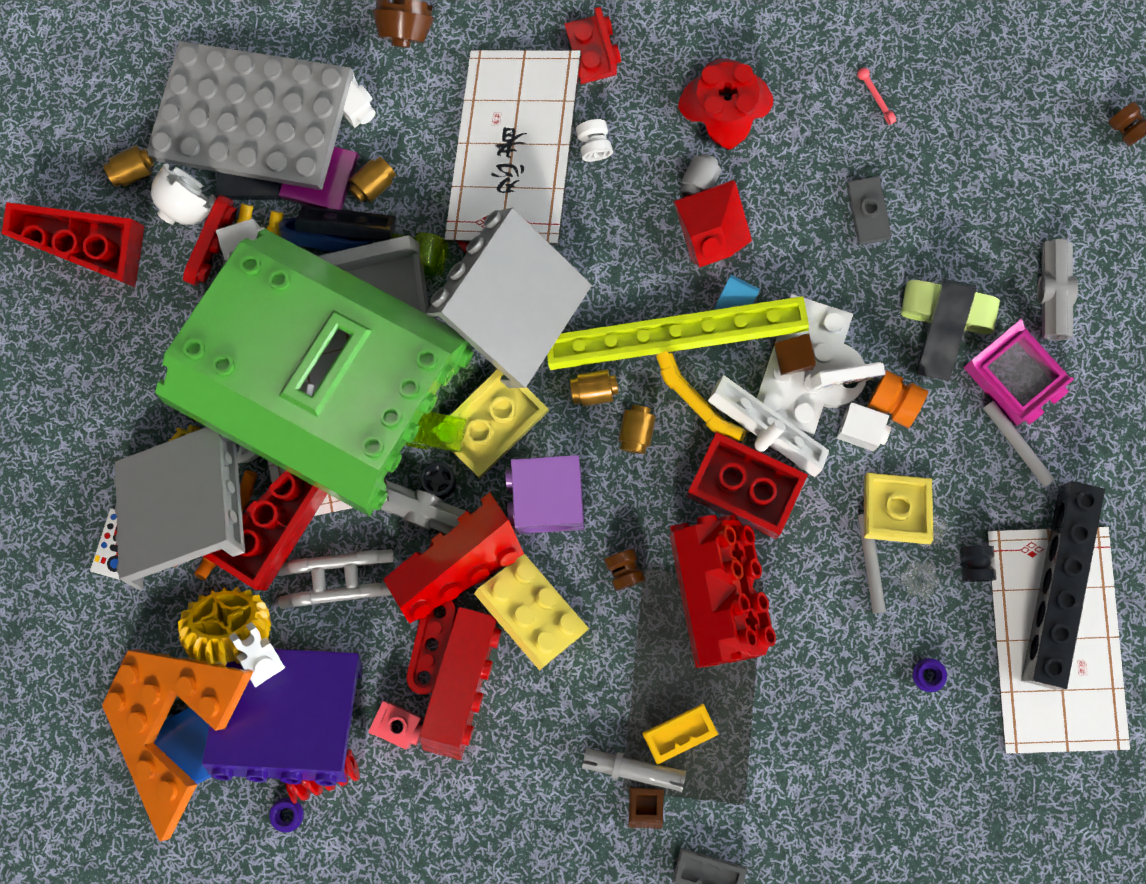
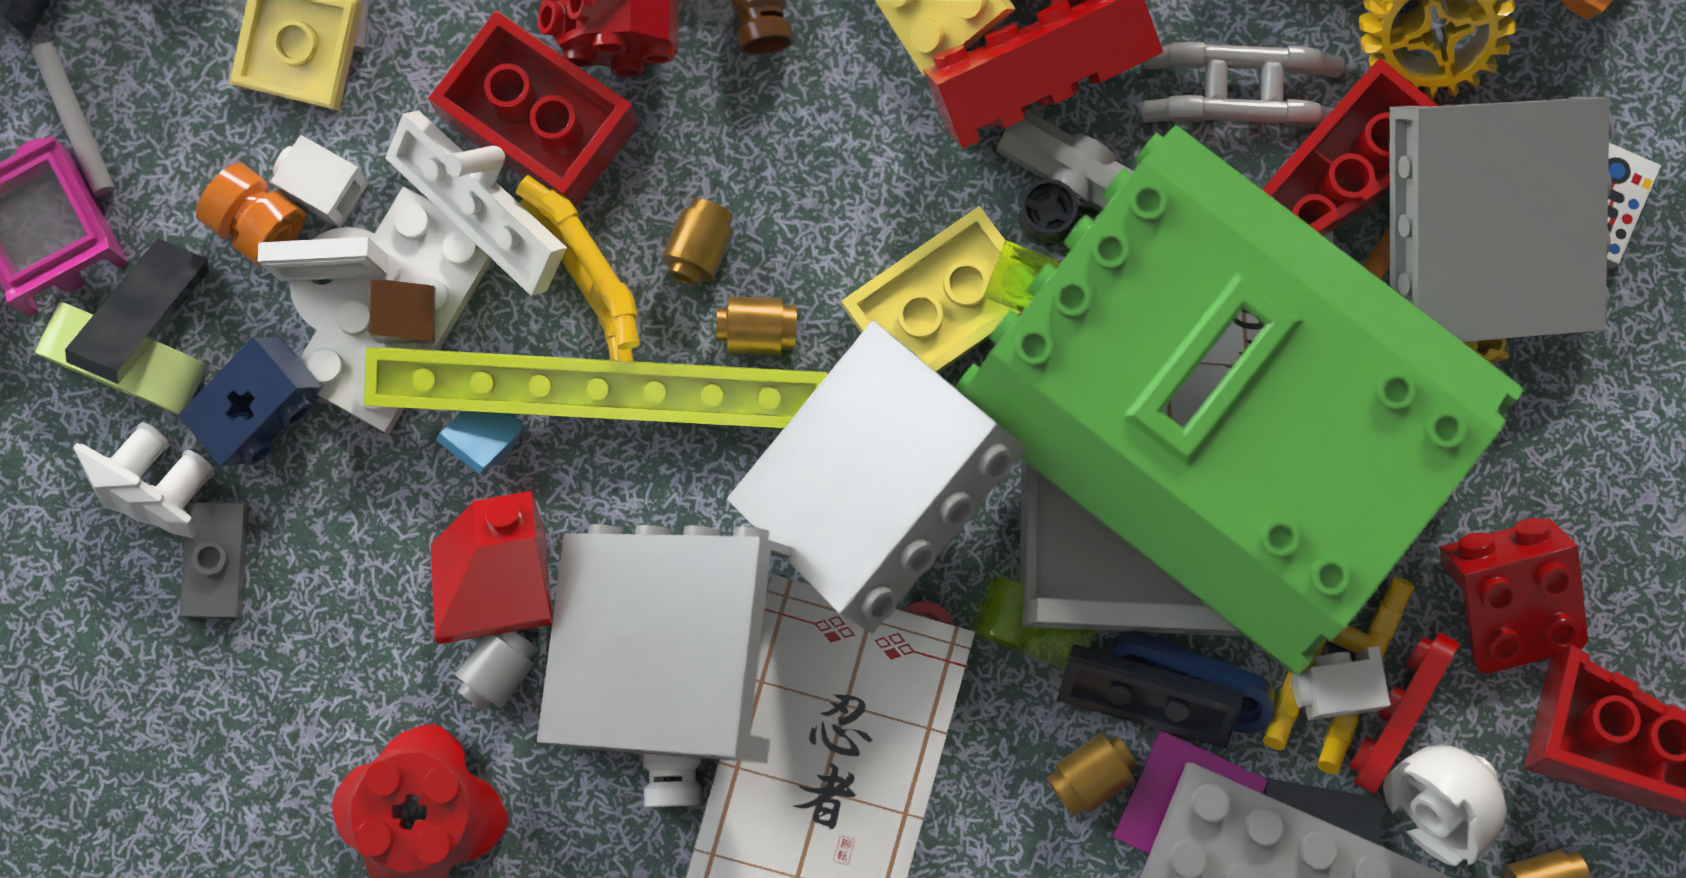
camera: 175 degrees left, 0 degrees up
(151, 315) = (1519, 593): none -> red bracket
(545, 494) = (869, 144): medium lavender brick -> none
(611, 194) = (658, 642): none -> light grey panel
(863, 74) = (158, 821): coral hinge -> none
(868, 292) = (251, 402): none -> dark blue brick
(932, 236) = (122, 490): none -> white connector

